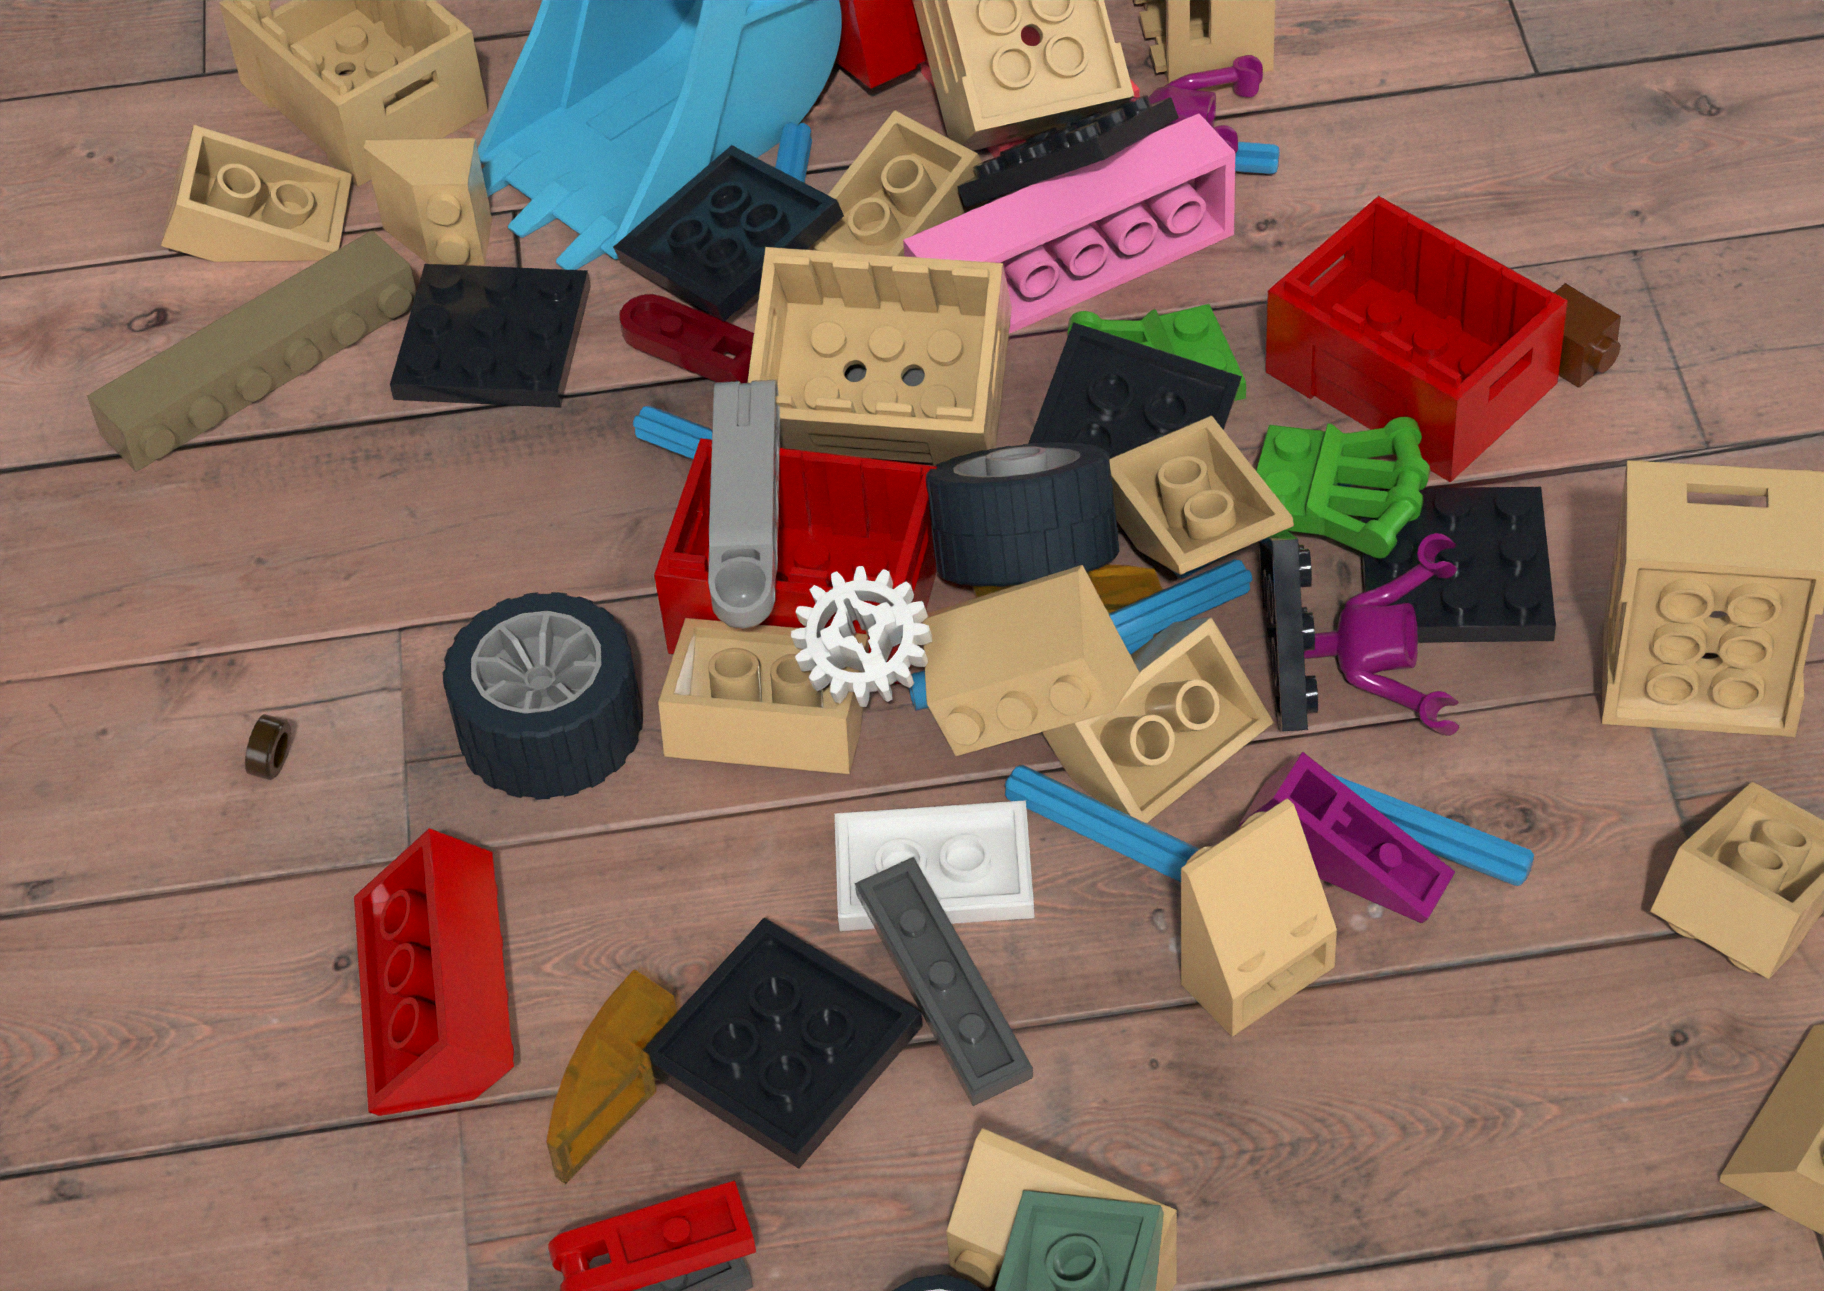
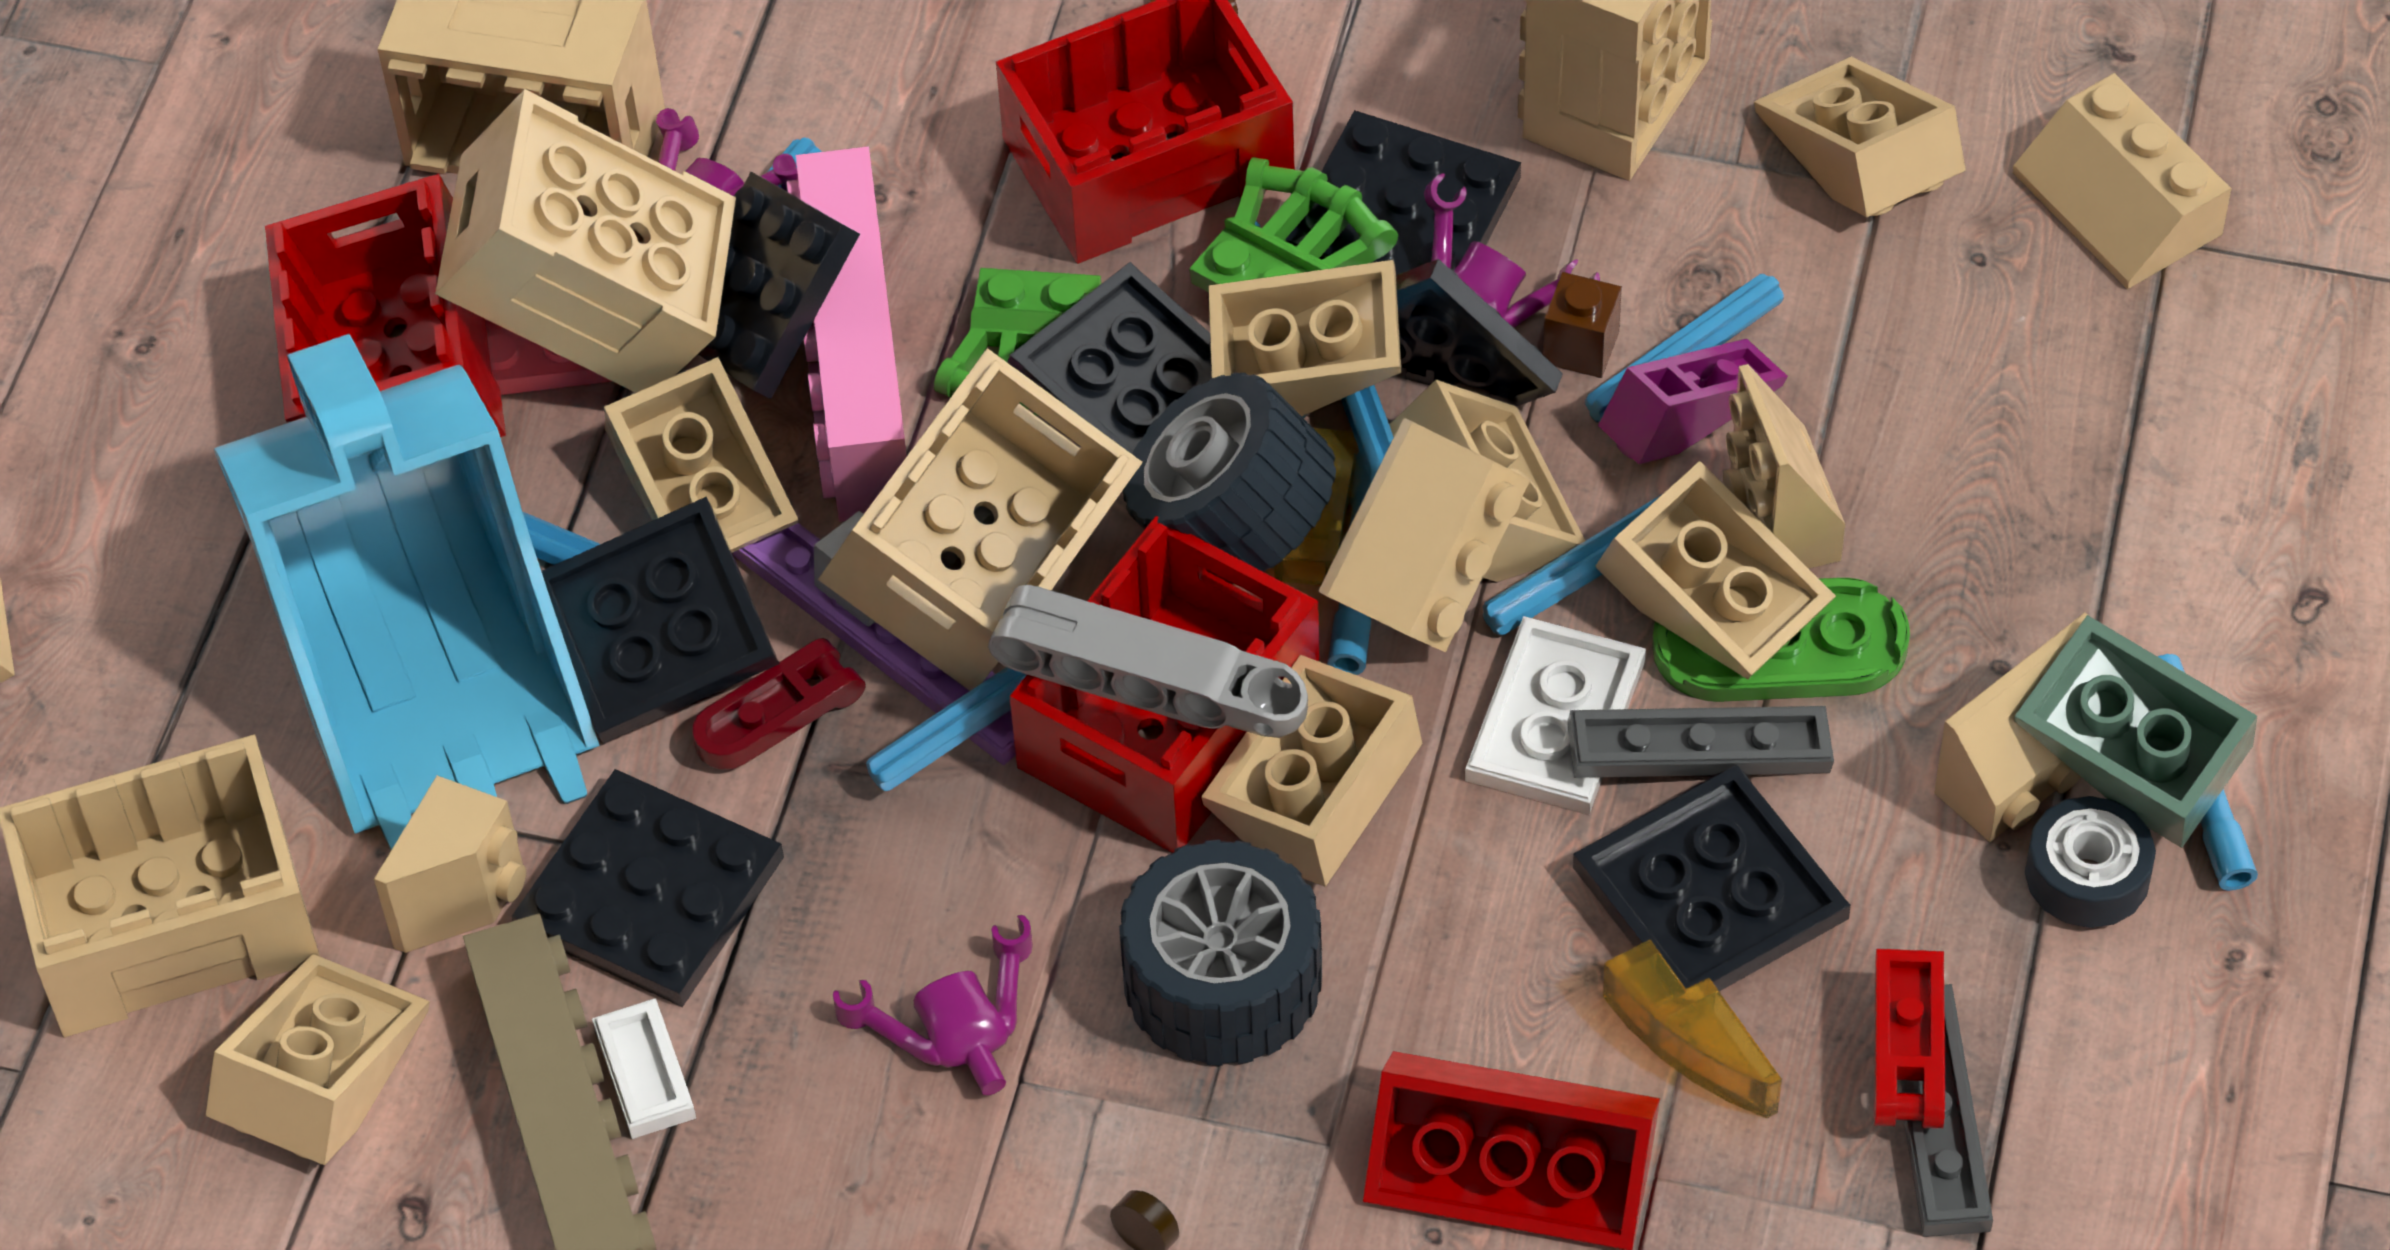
camera: 70 degrees left, 5 degrees up
(321, 394) = (644, 1068): none -> white tile
(431, 557) = (956, 1015): none -> magenta piece
(836, 647) = (1340, 641): white gear -> none
(1106, 1015) = (1842, 651): none -> bright green tile
(1112, 913) = (1714, 574): none -> tan slope
(1379, 728) = (1582, 324): none -> reddish brown brick

